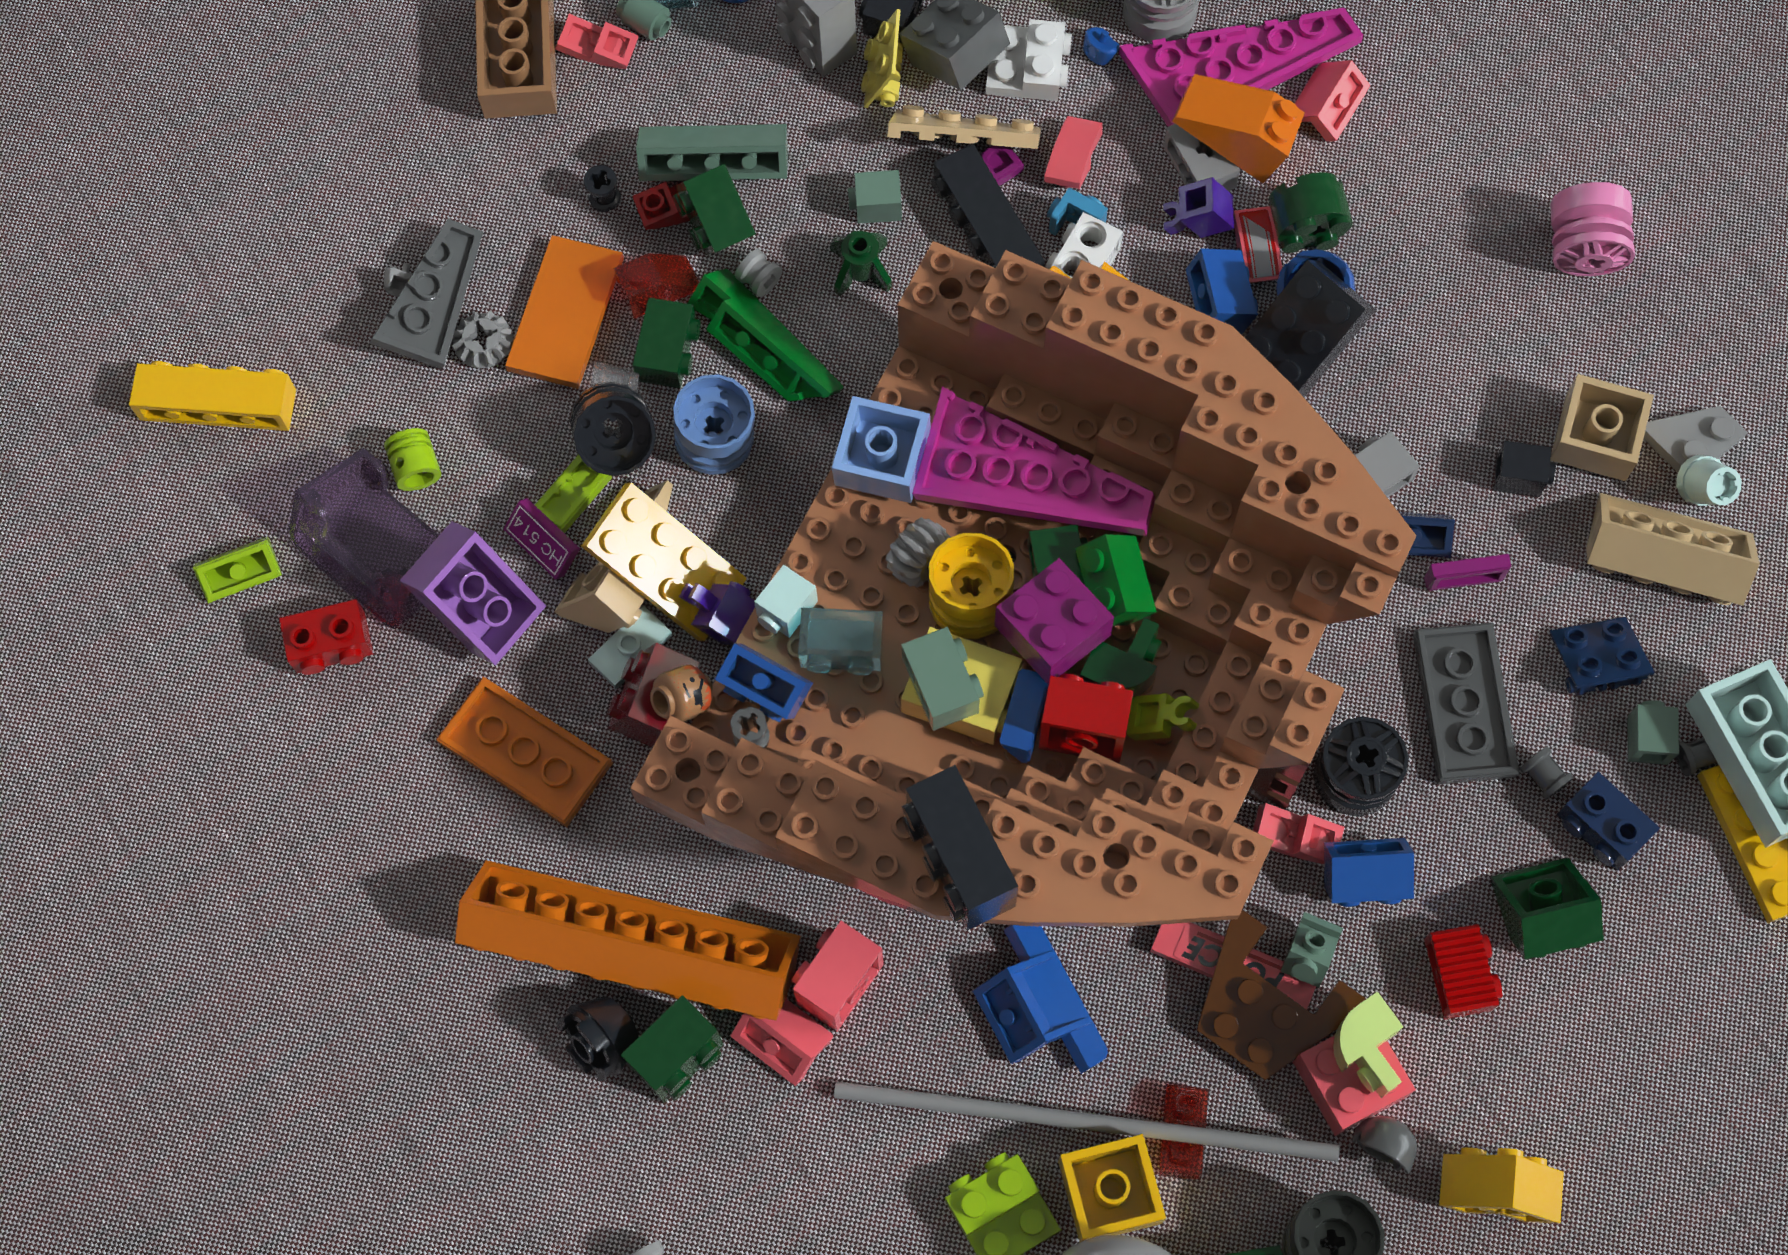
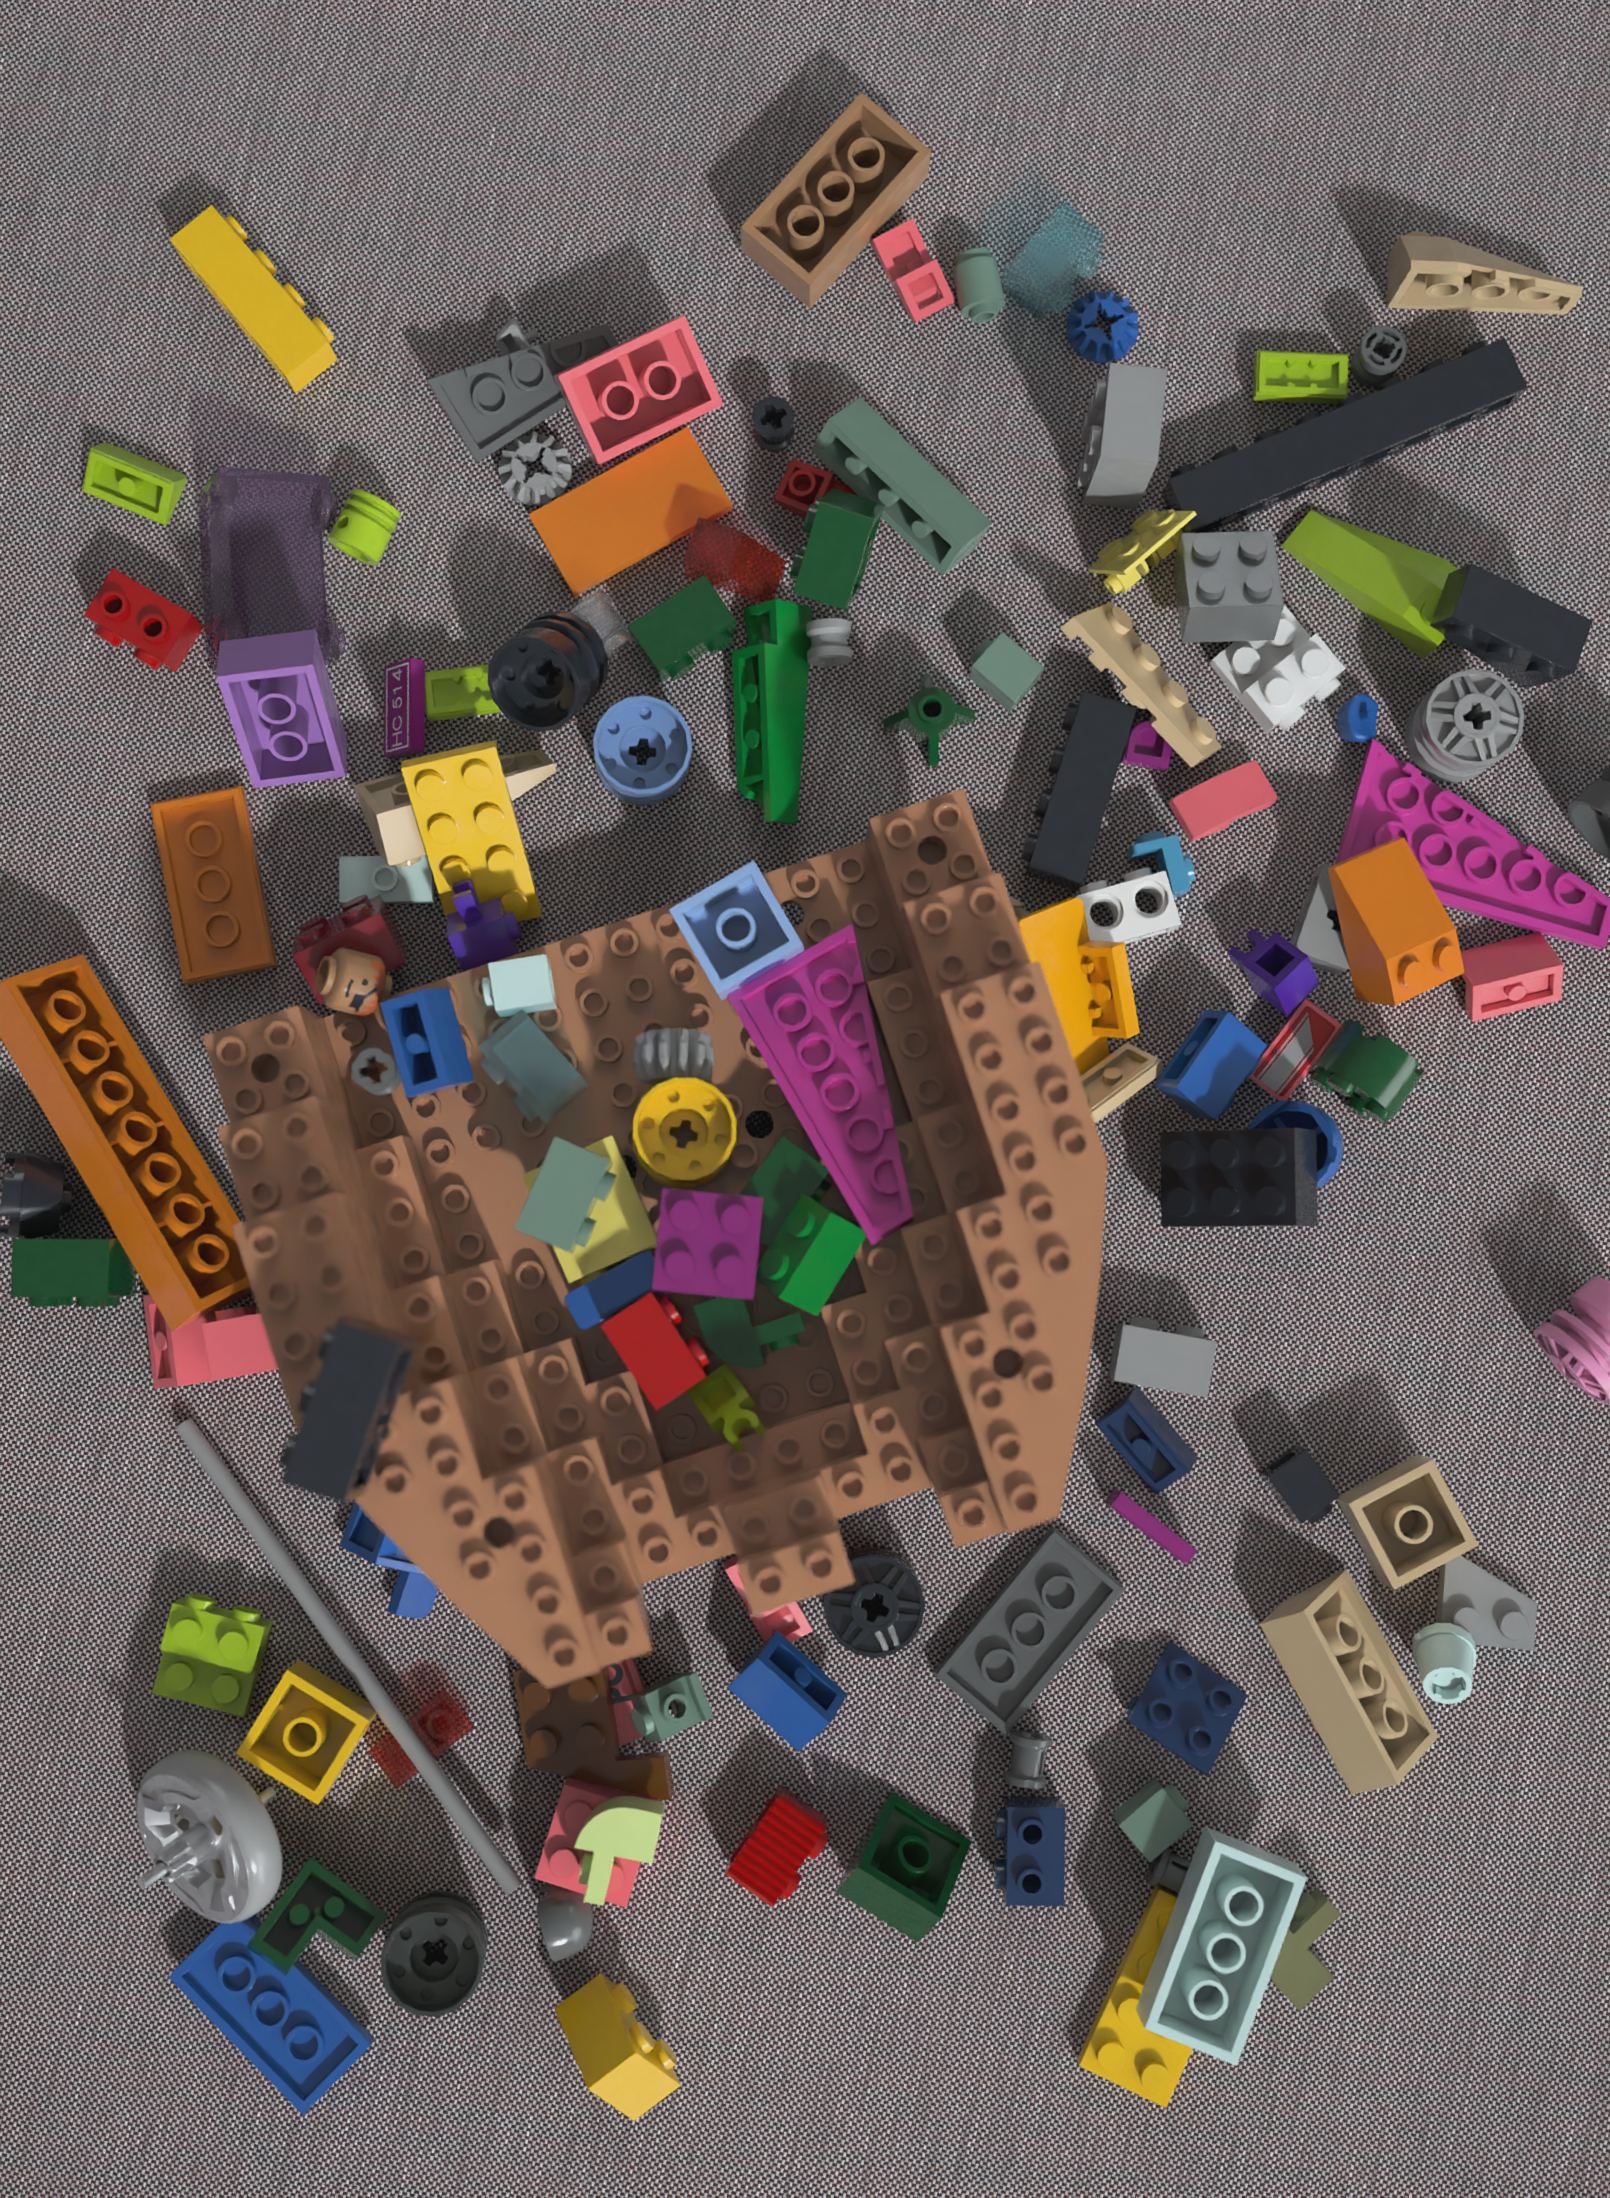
camera: 40 degrees right, 15 degrees up
(505, 235) = (638, 389): none -> coral brick

